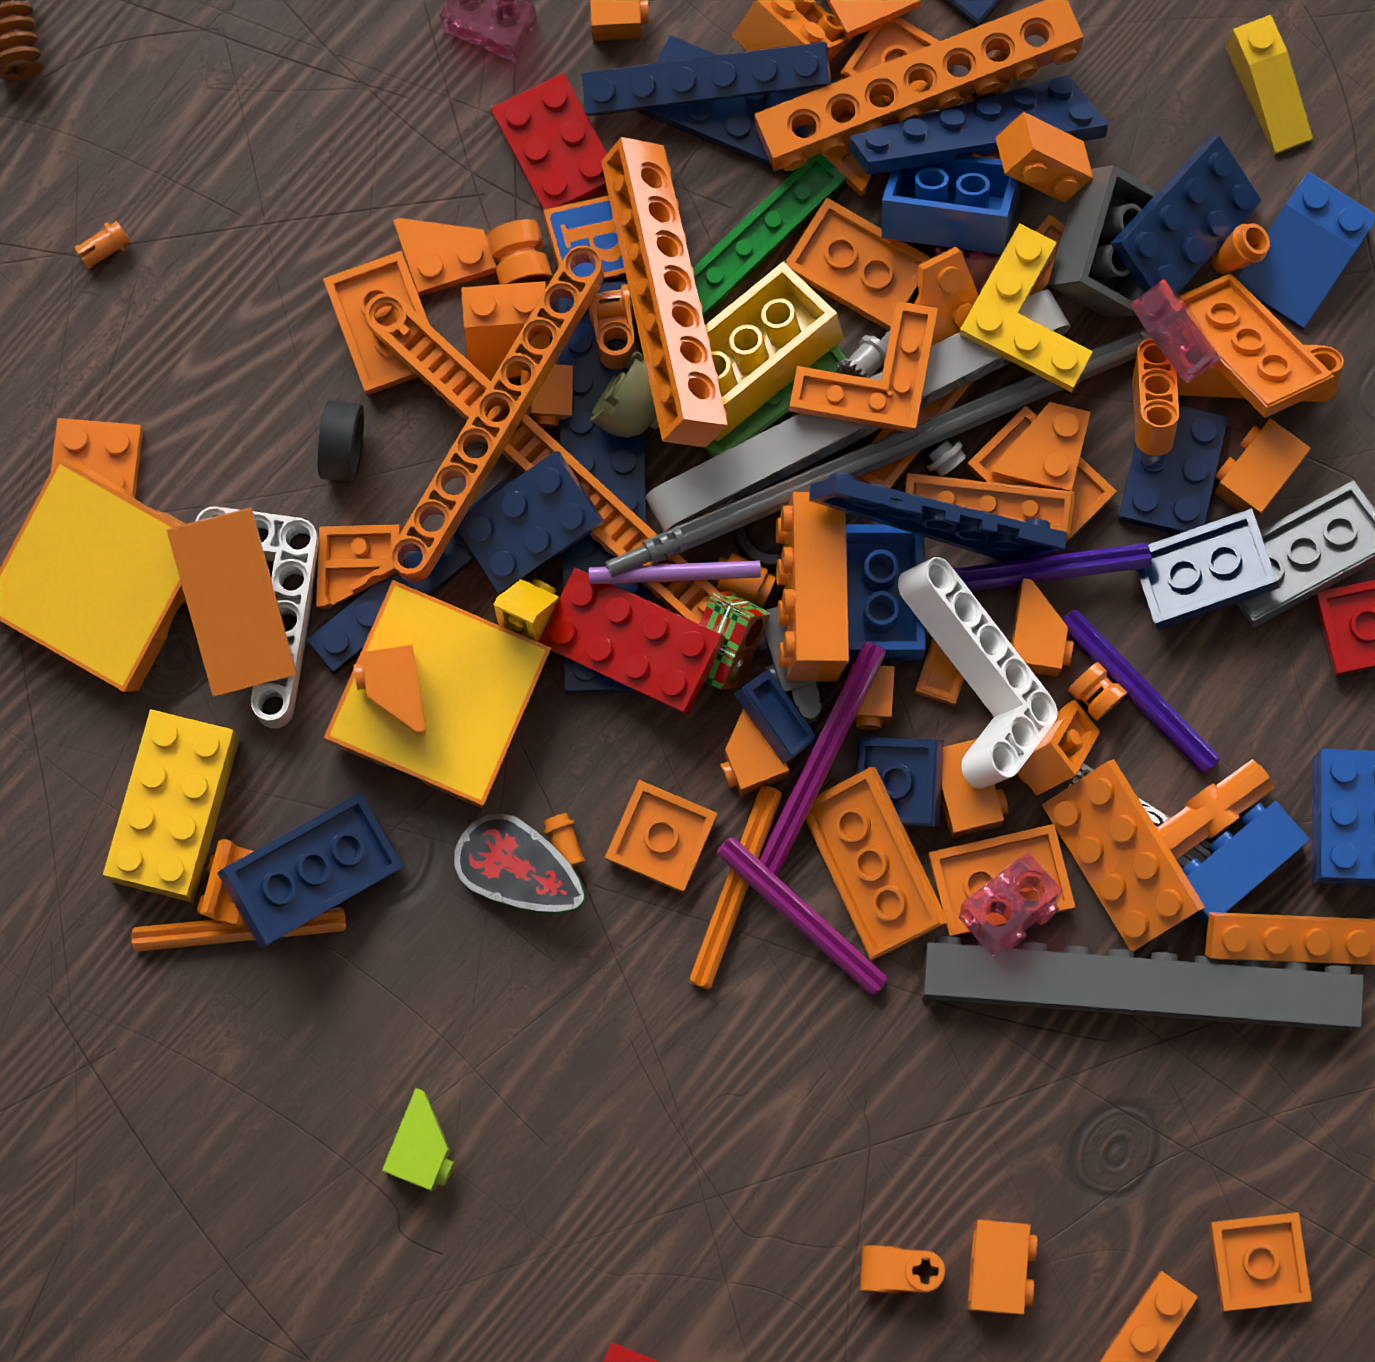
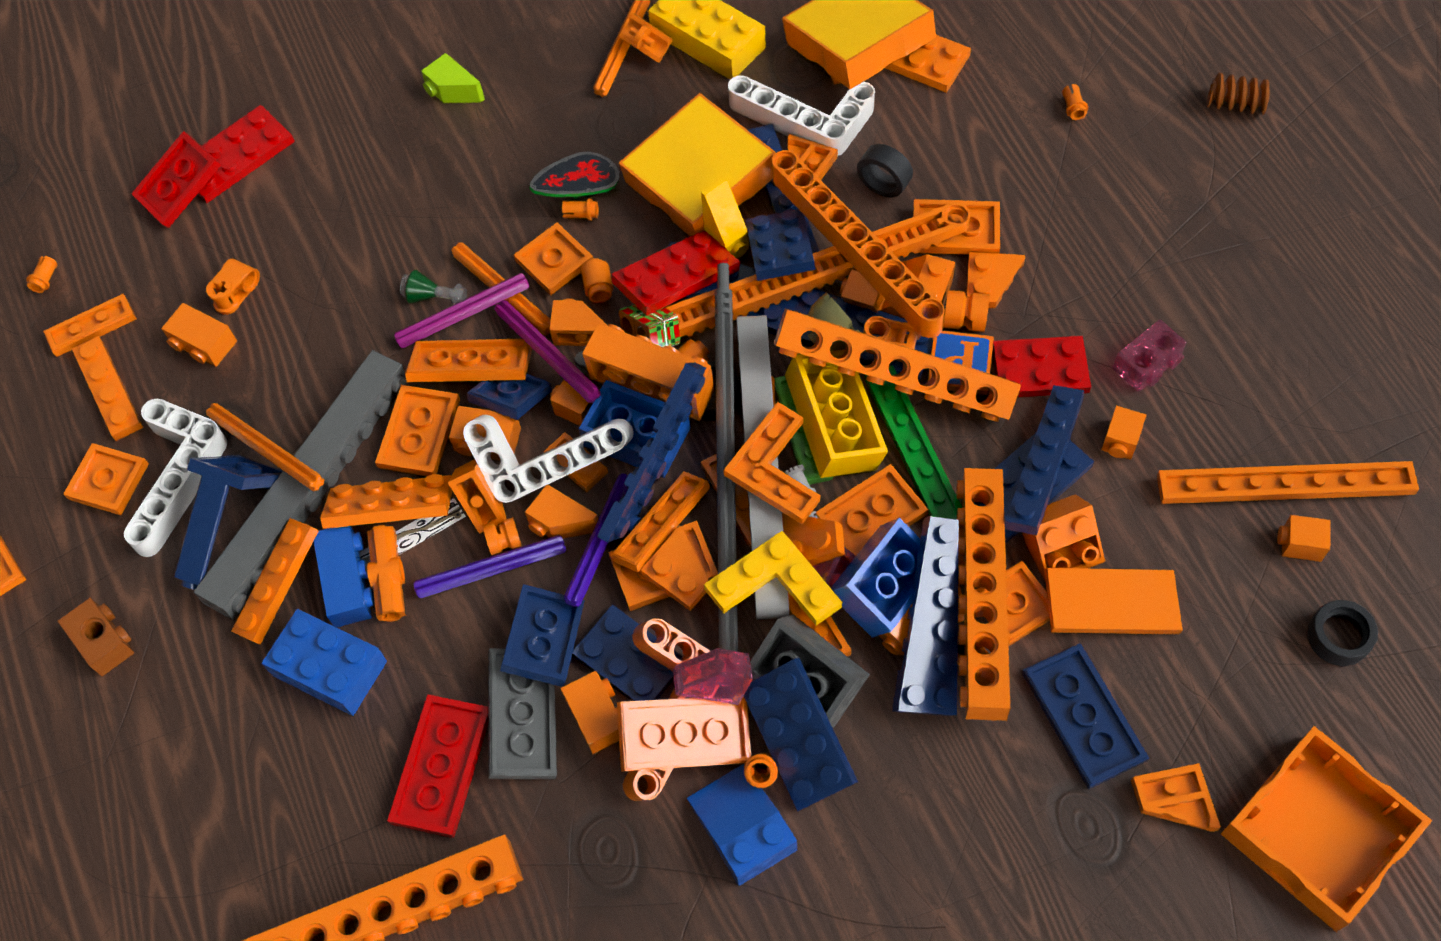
camera: 120 degrees right, 15 degrees down
(231, 601) = (804, 70): orange tile -> none
(310, 870) = (629, 69): dark blue plate -> none
(392, 684) = (706, 127): orange slope -> none
(672, 757) = (597, 280): none -> orange brick
(678, 572) = (701, 311): medium lavender bar -> none
(776, 716) = (575, 335): dark blue tile -> none
(787, 998) = (418, 287): none -> piece
(945, 457) = (707, 511): light grey plate -> none
(1003, 897) = (396, 412): clear pink brick -> none
(1044, 157) = (885, 643): orange brick -> none
(1127, 1059) = (265, 447): none -> orange axle
(1198, 1053) = (217, 477): none -> dark blue piece
(1206, 1163) = (162, 496): none -> white beam
(1270, 83) = (886, 859): yellow slope -> none

